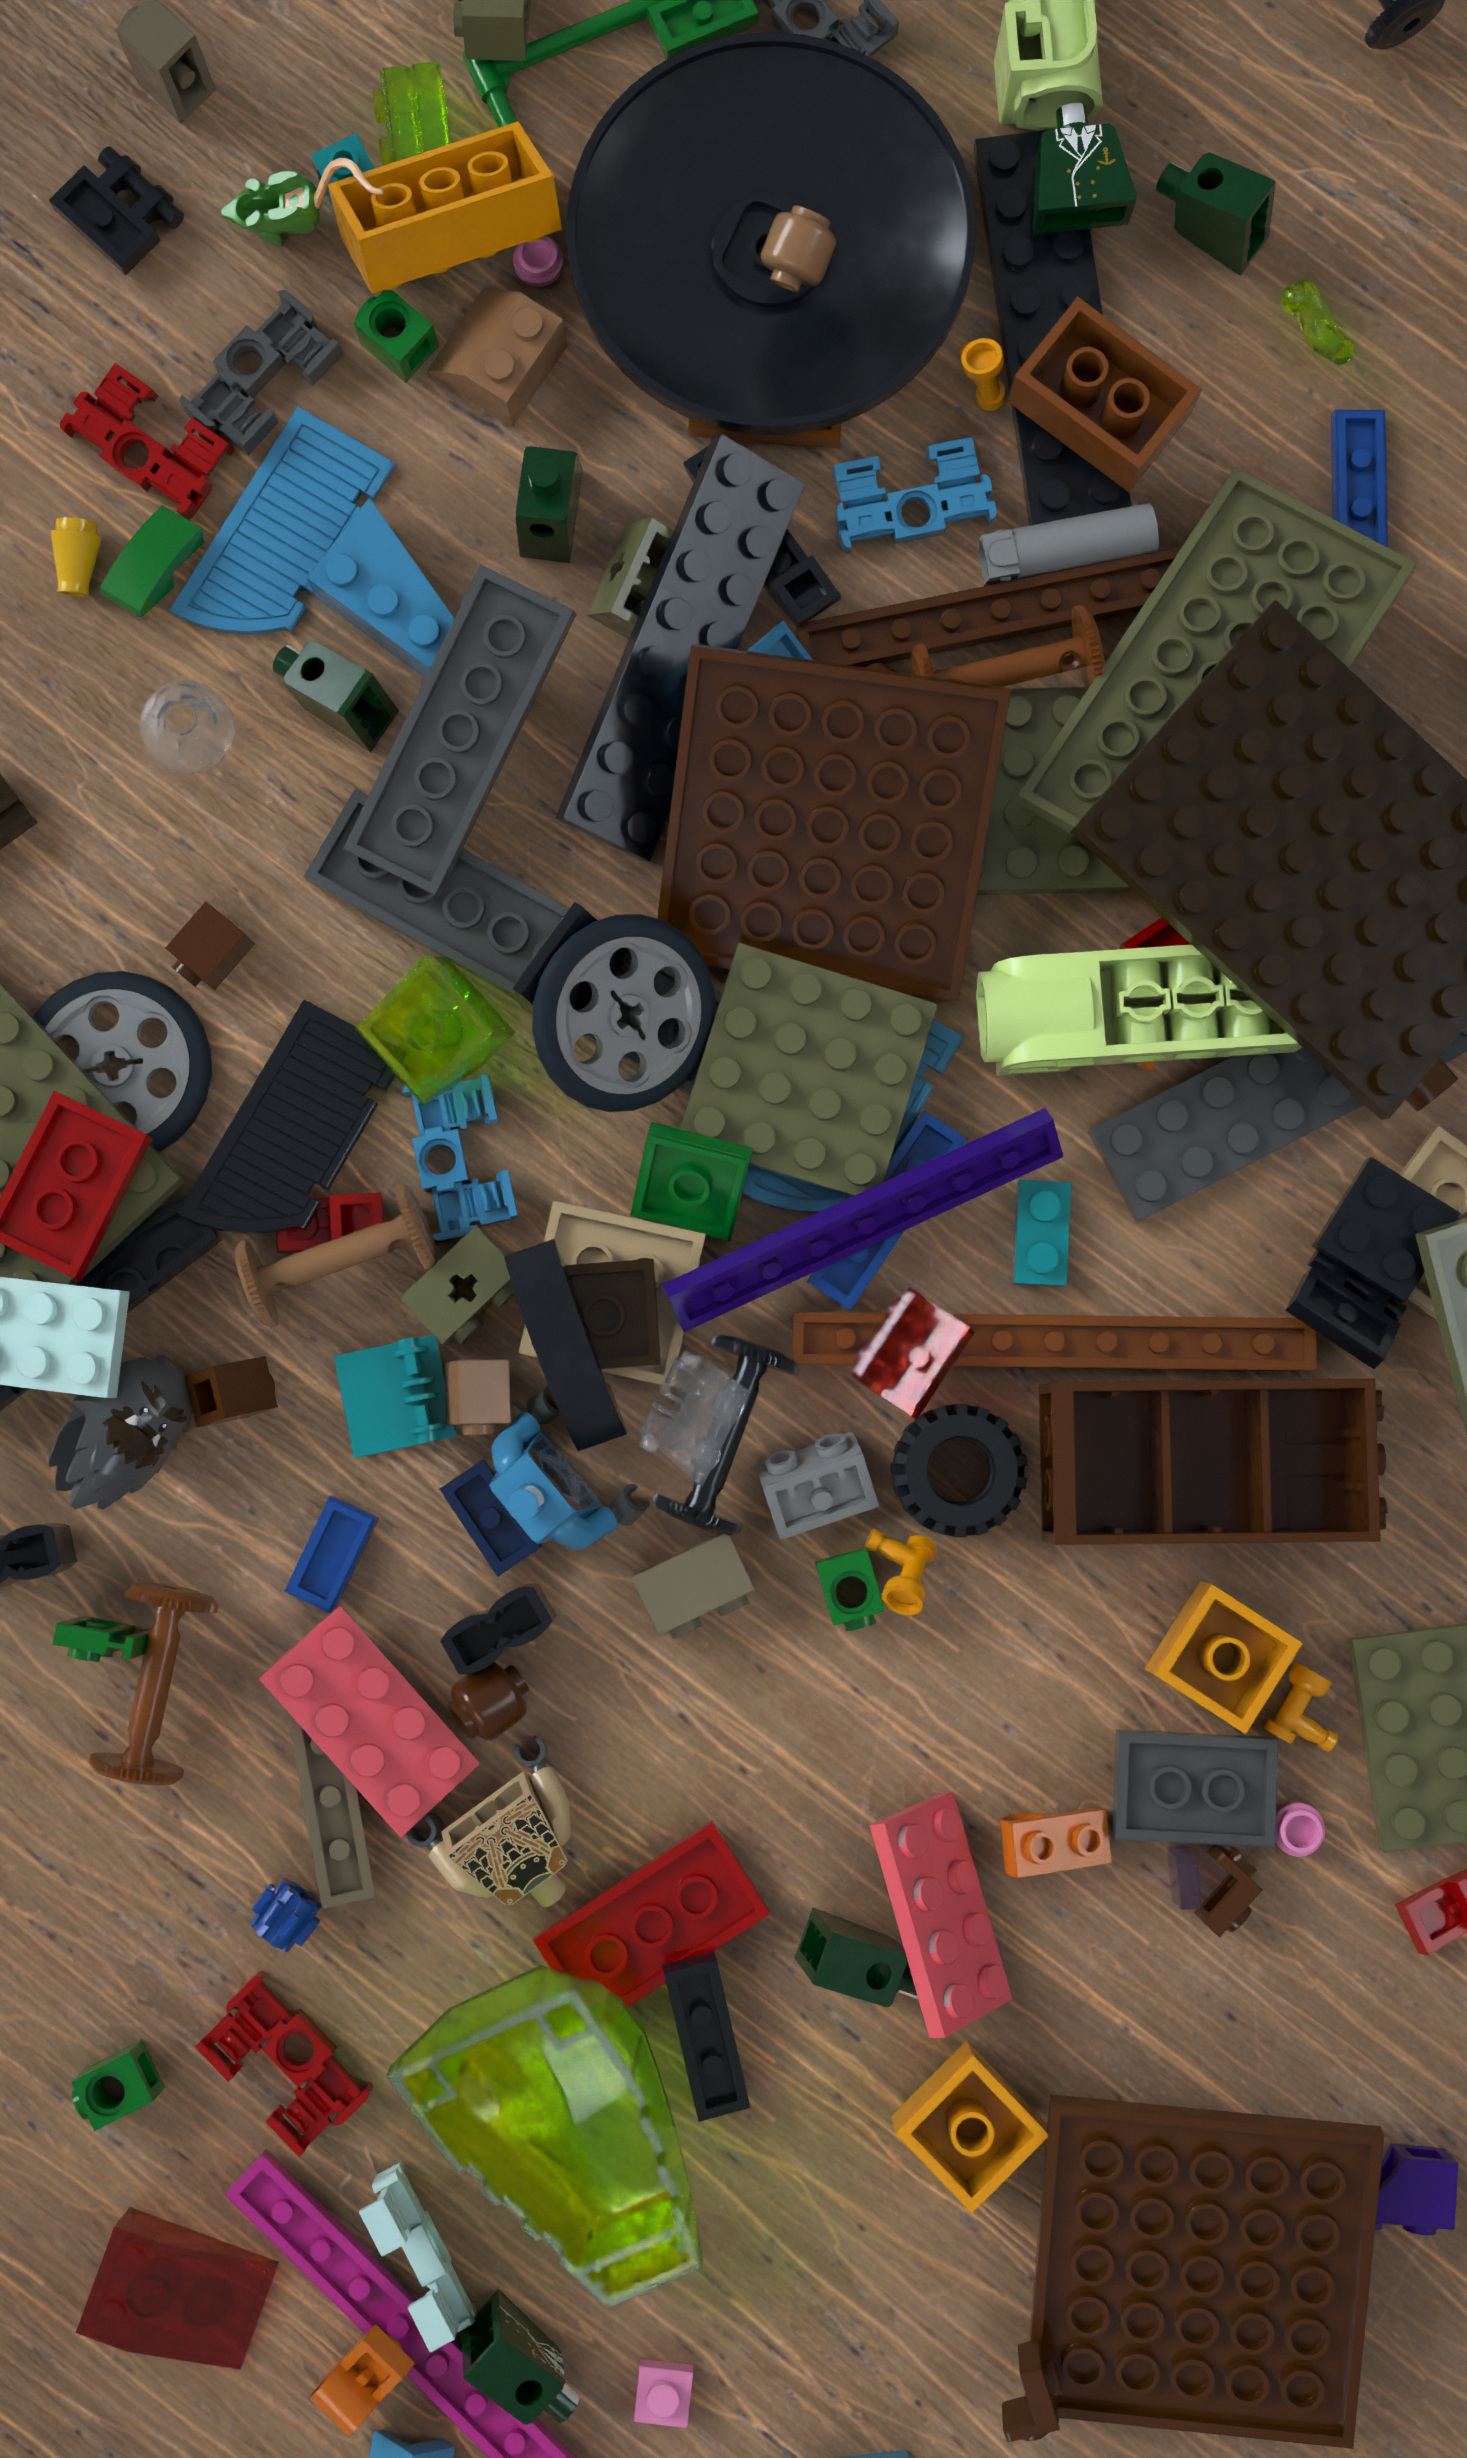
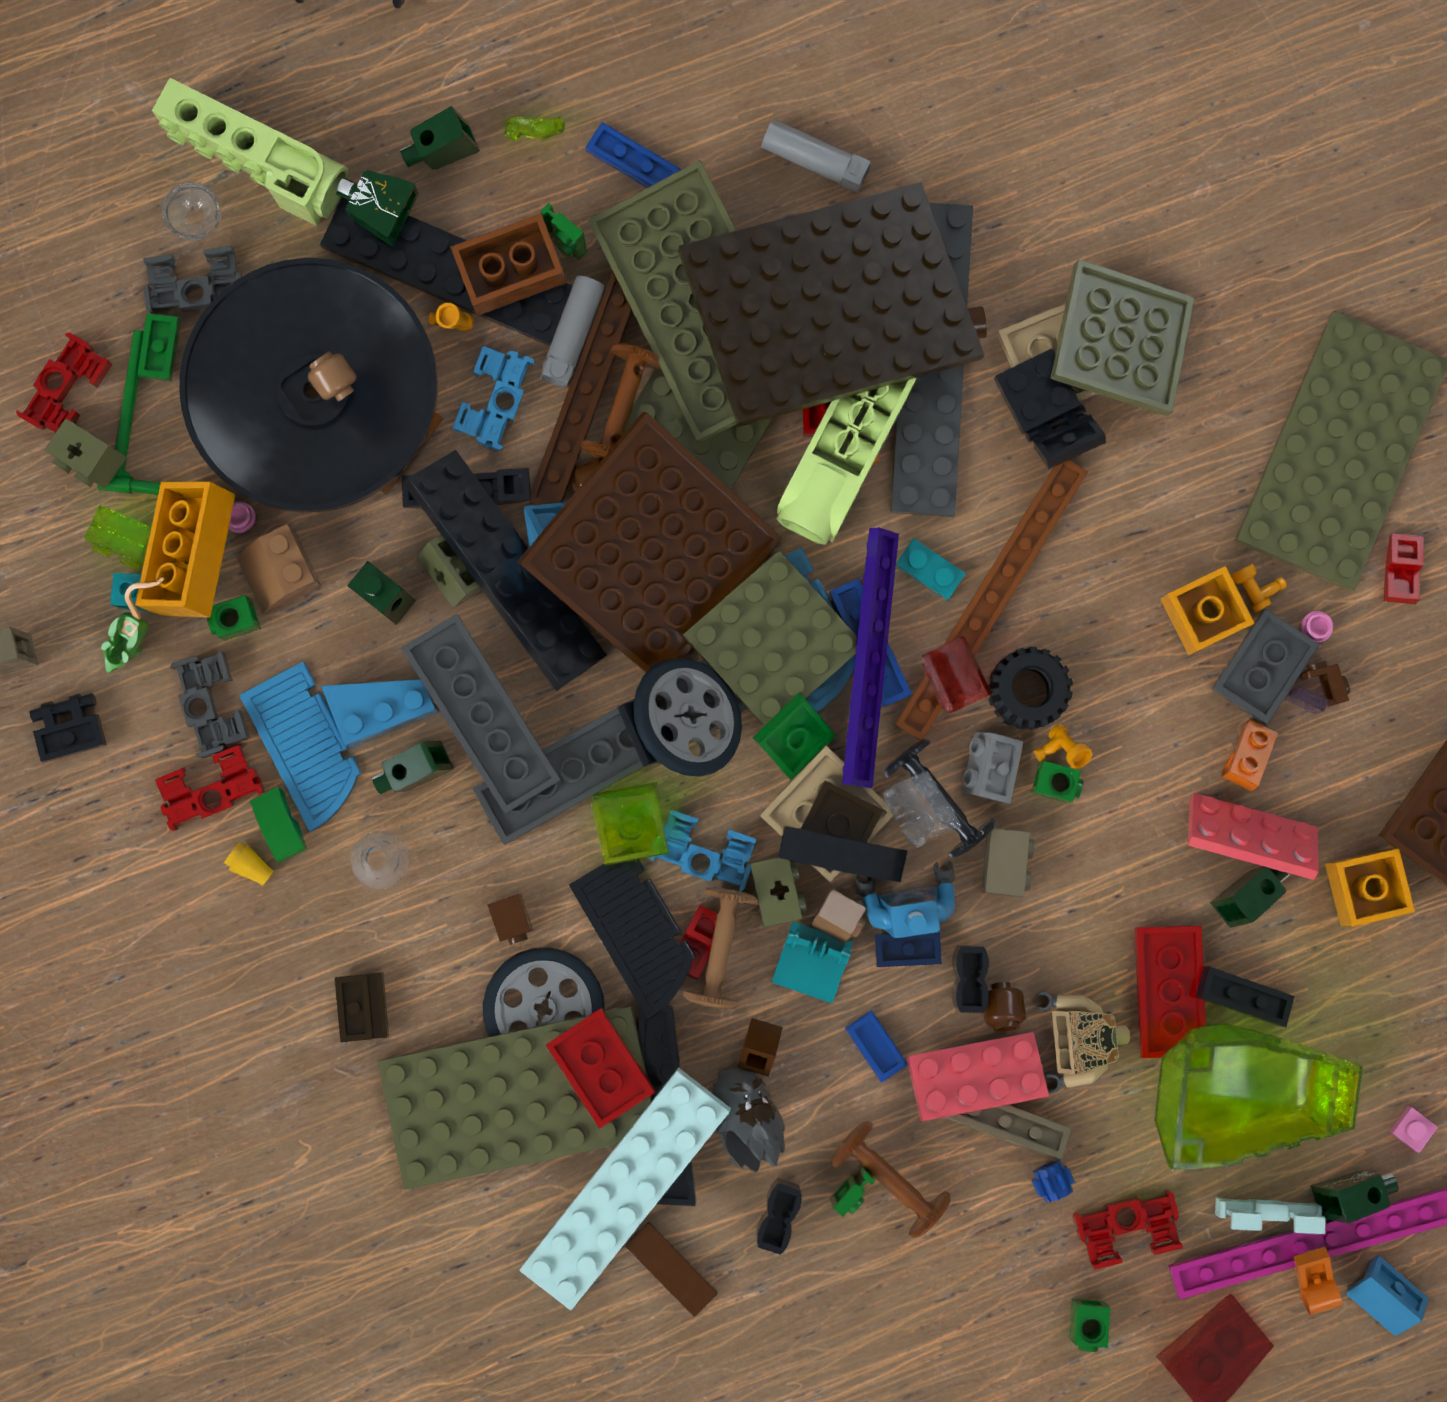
camera: 60 degrees left, 0 degrees up
(1196, 446) = (568, 236): none -> green plate
(1211, 1461) = (1103, 556): reddish brown container -> none

